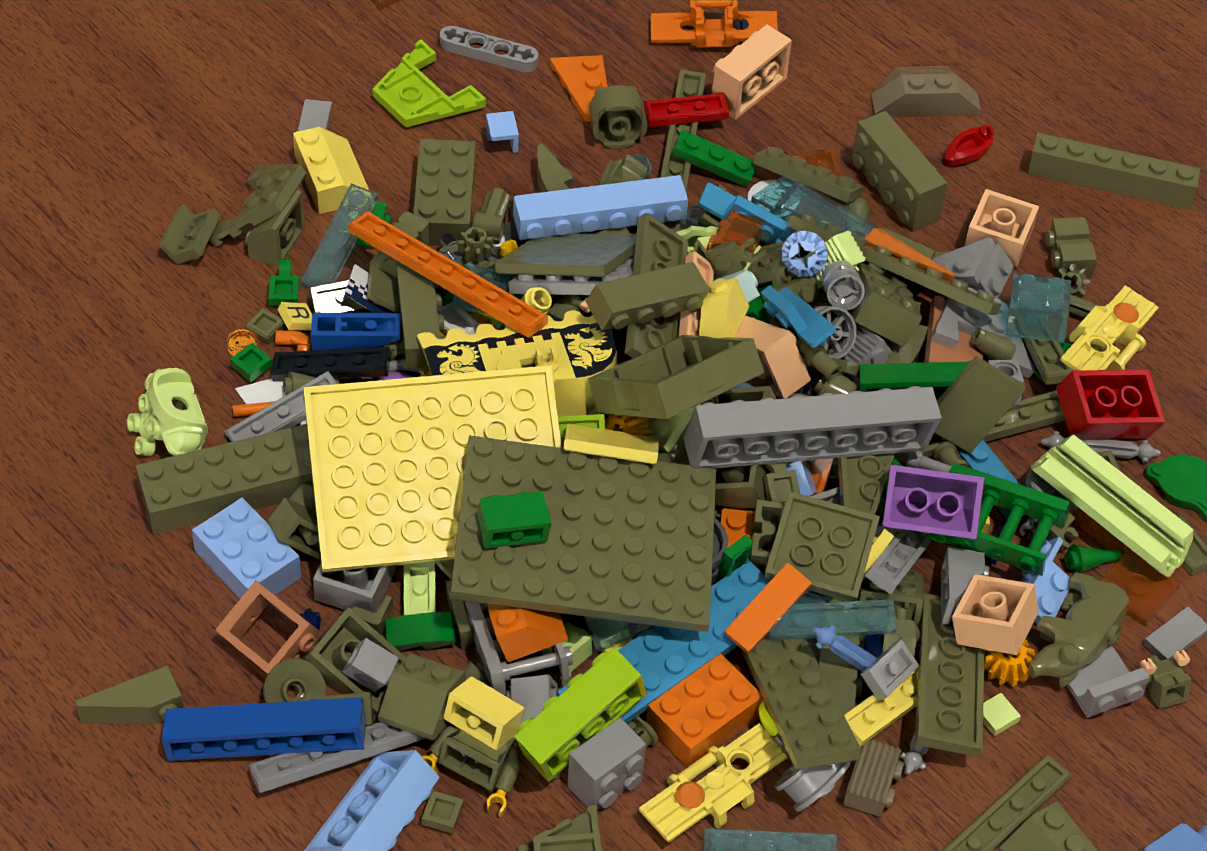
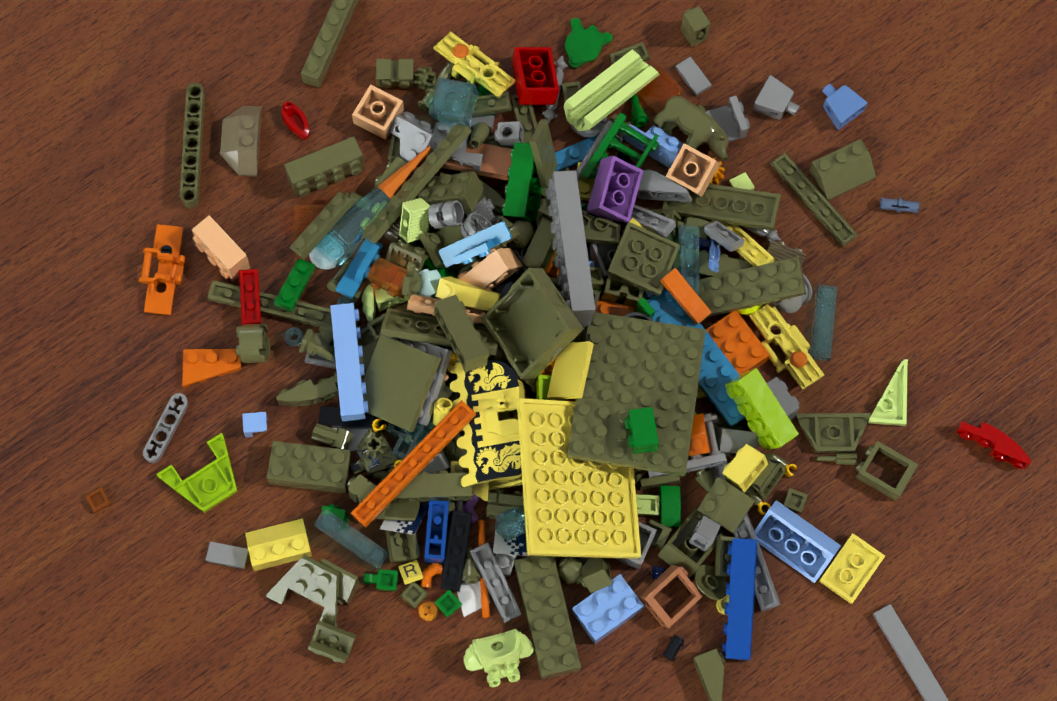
camera: 85 degrees left, 20 degrees up
(194, 651) = (673, 647): none -> black pin
(810, 242) = (412, 227): light blue gear -> none
(901, 40) = (194, 153): none -> olive beam
(1165, 752) = (775, 100): none -> light grey torso
(1167, 680) = (725, 87): olive piece -> none

